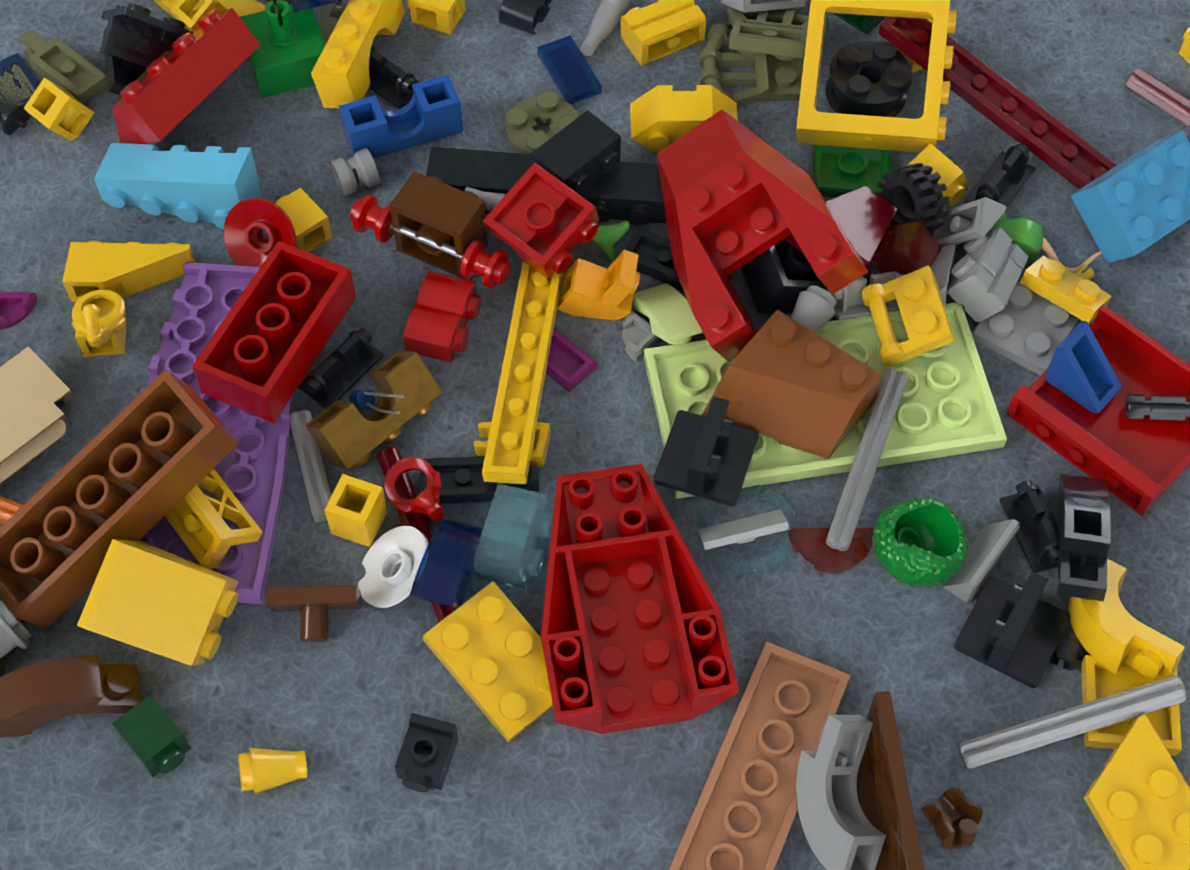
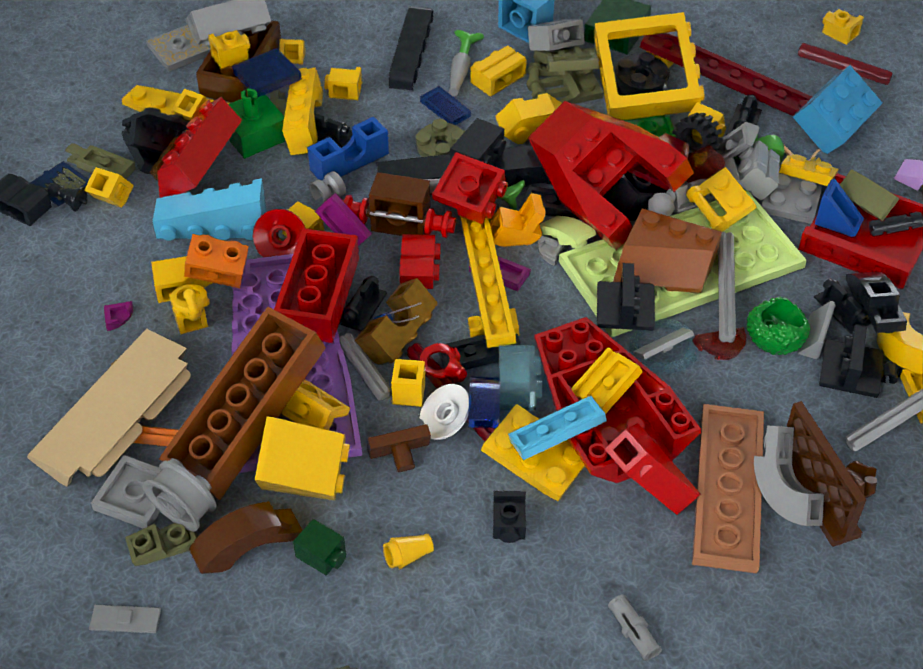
camera: 15 degrees left, 10 degrees down
(152, 261) = (216, 260): none -> orange brick
(351, 235) = (342, 219): none -> magenta tile
(529, 639) = (557, 427): none -> medium azure tile
(629, 578) = (607, 379): none -> yellow plate
(643, 732) = (652, 468): none -> red slope
(1135, 354) = (868, 195): none -> olive slope

